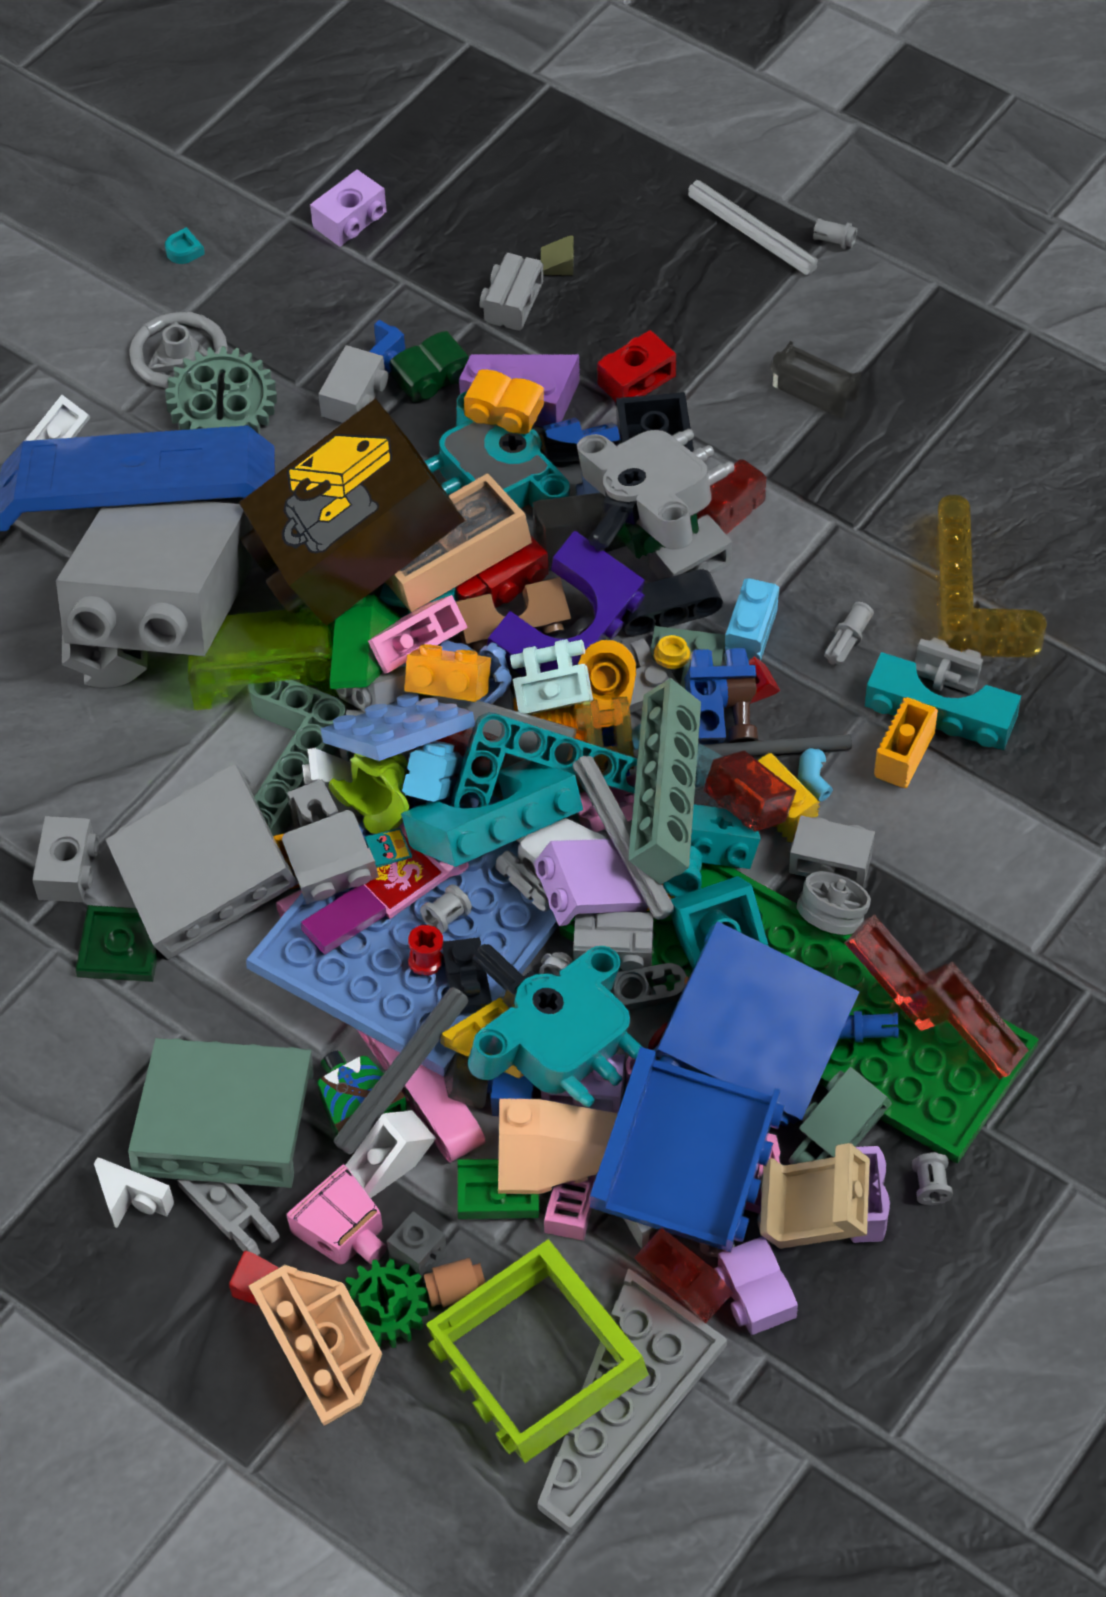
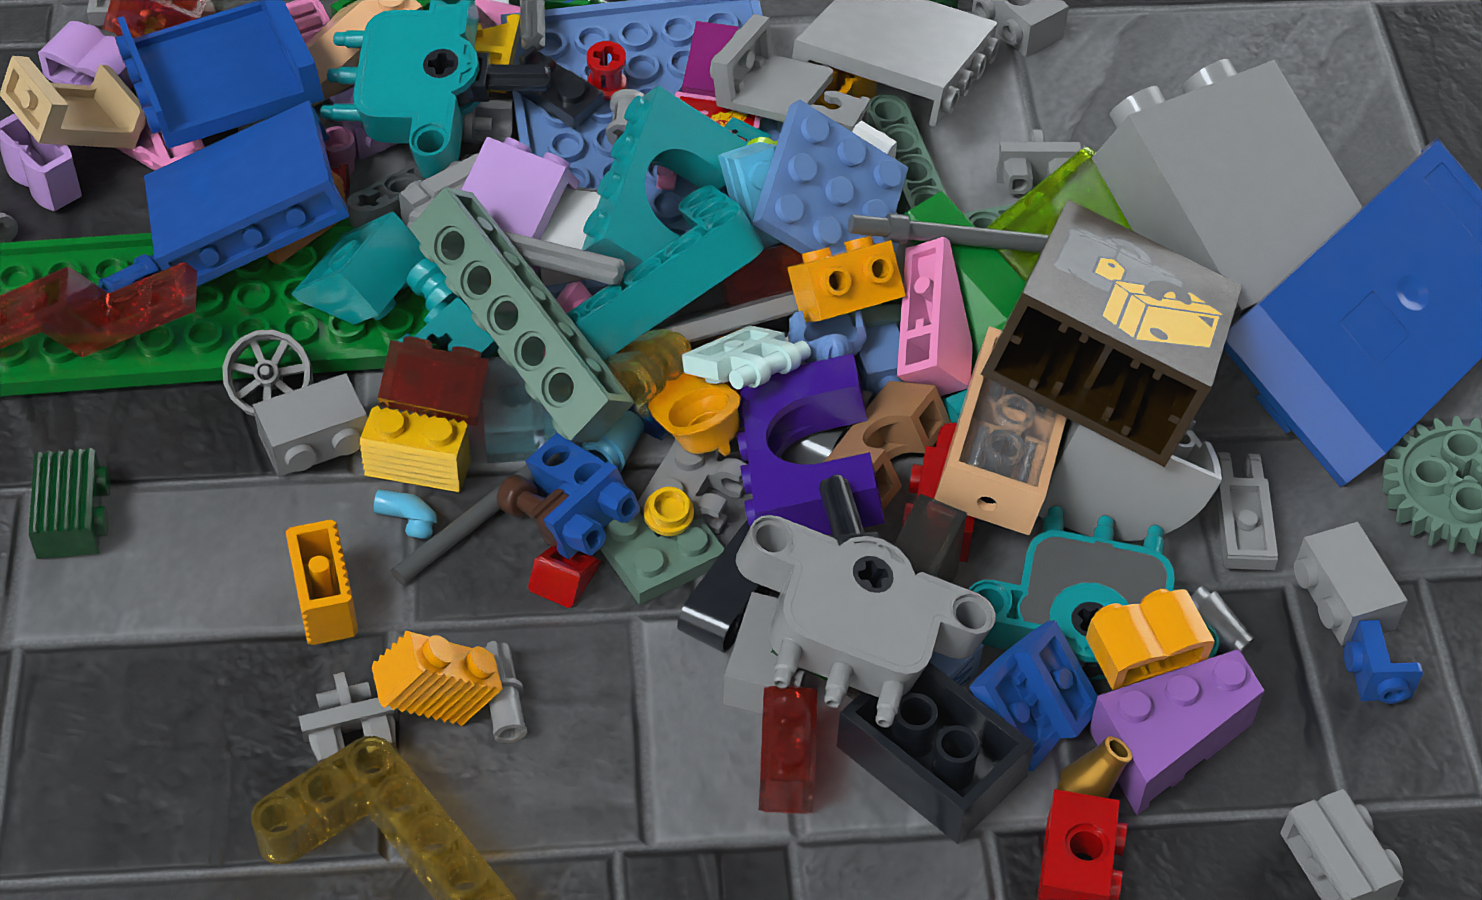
camera: 135 degrees right, 5 degrees down
(196, 739) = (1031, 161): none -> light grey hips
(389, 662) = (900, 229): none -> dark grey bar
(429, 366) = (1305, 681): dark green brick -> none
(437, 421) = (1220, 617): none -> flat silver cone
(592, 388) = (1096, 770): none -> pearl gold cone
(753, 617) = (620, 616): medium azure brick -> none
(841, 1116) = (104, 203): sand green brick -> none
(888, 630) = (436, 677): none -> light orange brick
(981, 717) = (261, 682): teal arch -> none
(1019, 906) = (68, 503): none -> dark green brick

